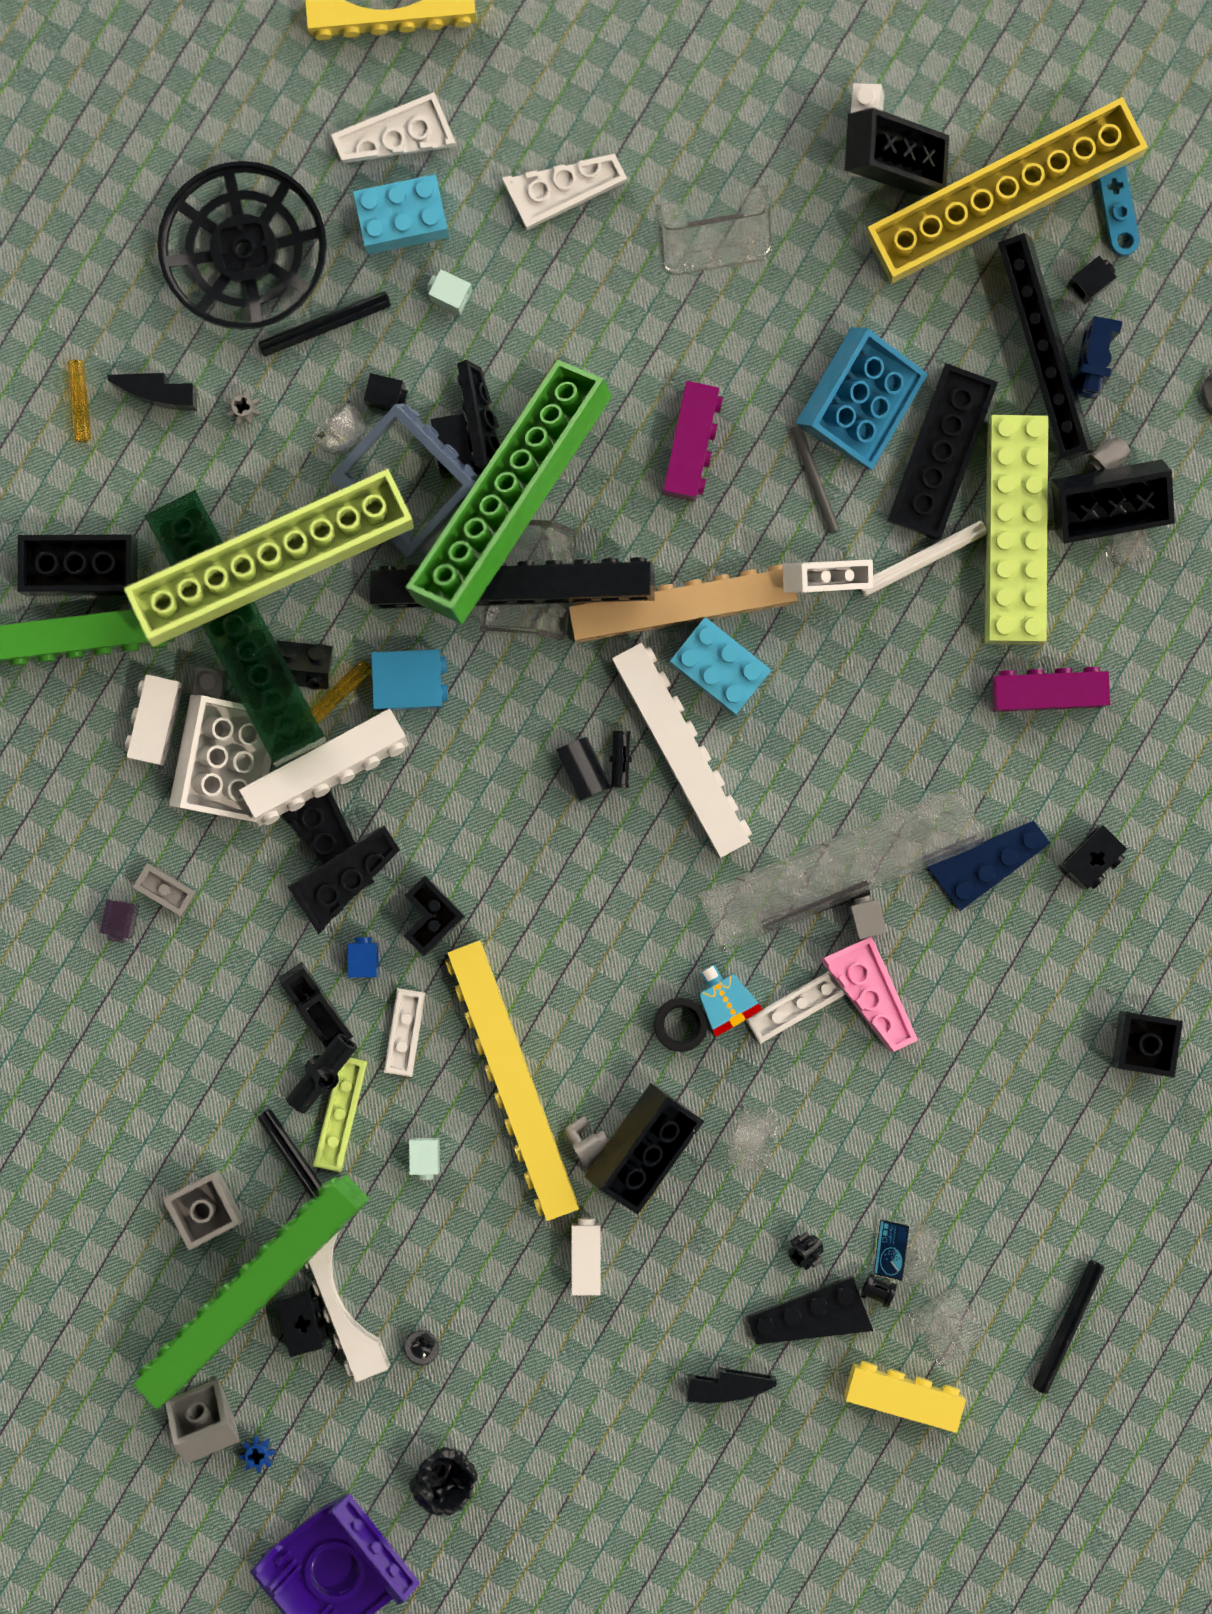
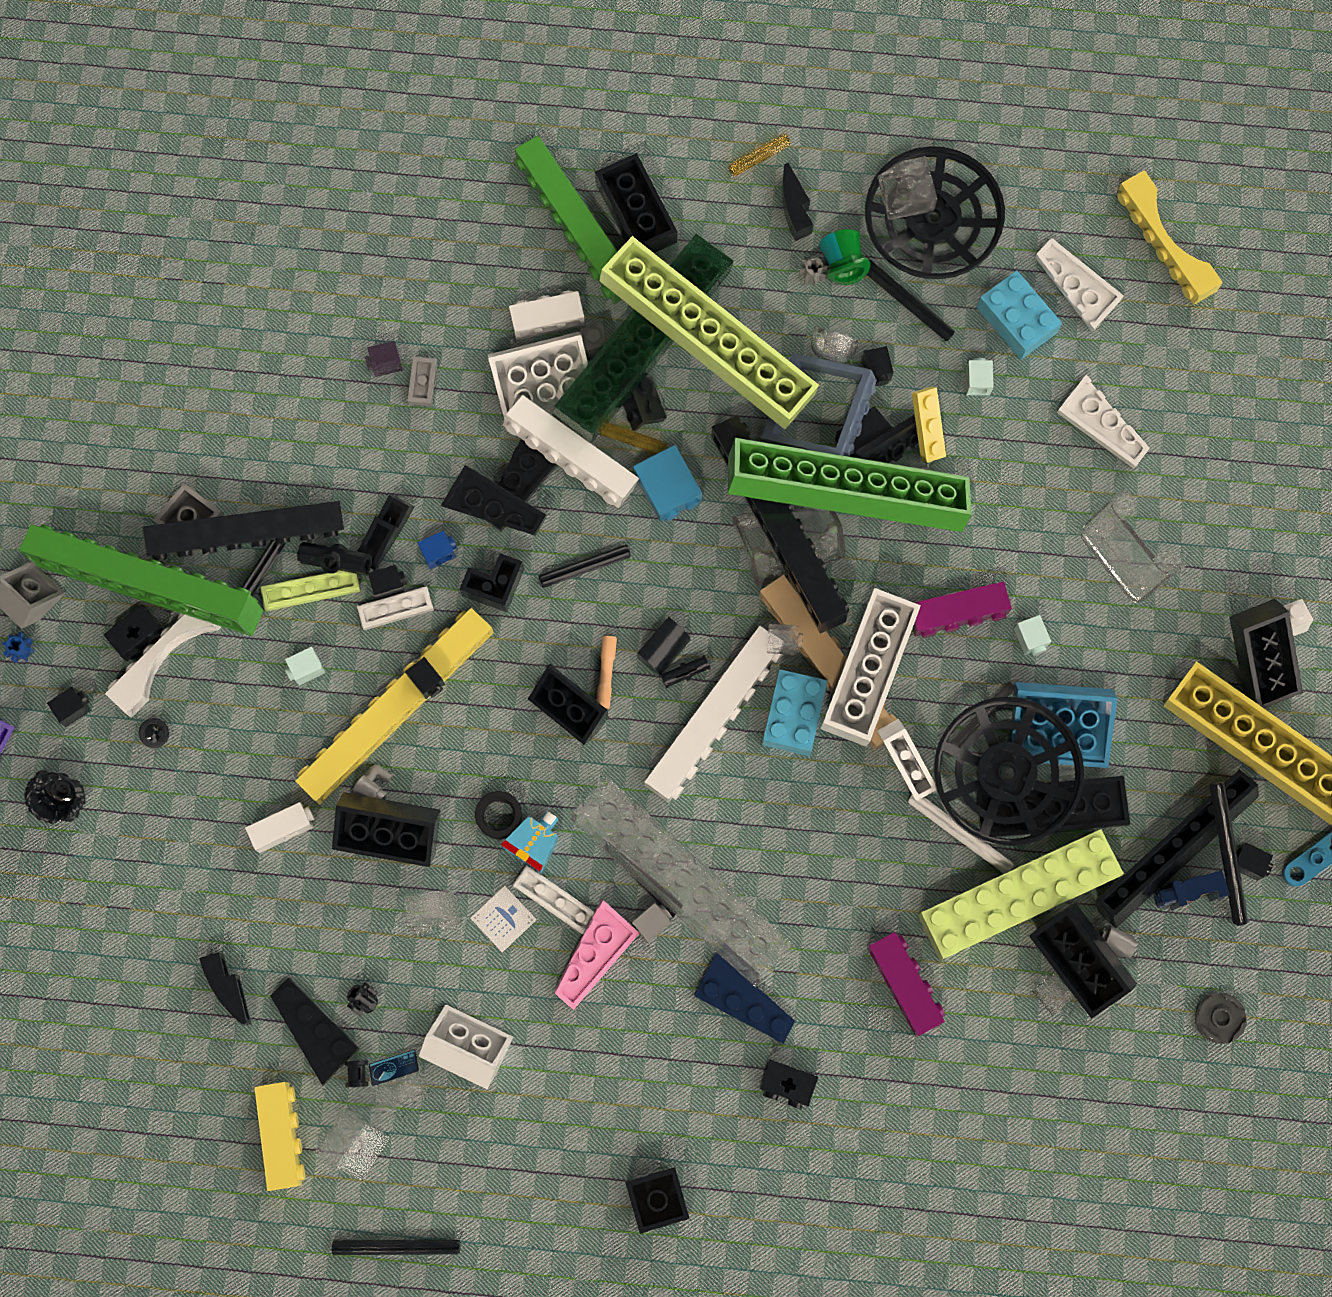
camera: 65 degrees right, 10 degrees down
(204, 261) = (908, 188): none -> clear slope
(246, 367) = (844, 257): none -> green hat
(246, 1158) = (243, 528): none -> black brick
(349, 1425) = (69, 706): none -> black brick
(374, 1028) = (387, 582): none -> black brick
(455, 810) = (584, 566): none -> black axle
(479, 372) = (928, 424): none -> light yellow plate
(505, 1035) = (425, 678): none -> black brick
(567, 833) = (607, 658): none -> light nougat piece
(603, 900) = (568, 705): none -> black slope
(642, 640) = (784, 639): none -> clear brick
(715, 565) = (870, 667): none -> white brick
(756, 380) = (1032, 636): none -> light aqua brick
(789, 1068) = (503, 919): none -> clear sticker
(902, 466) = (1023, 766): none -> black dish
(903, 1166) = (465, 1046): none -> white slope
(1076, 298) = (1228, 853): none -> black axle

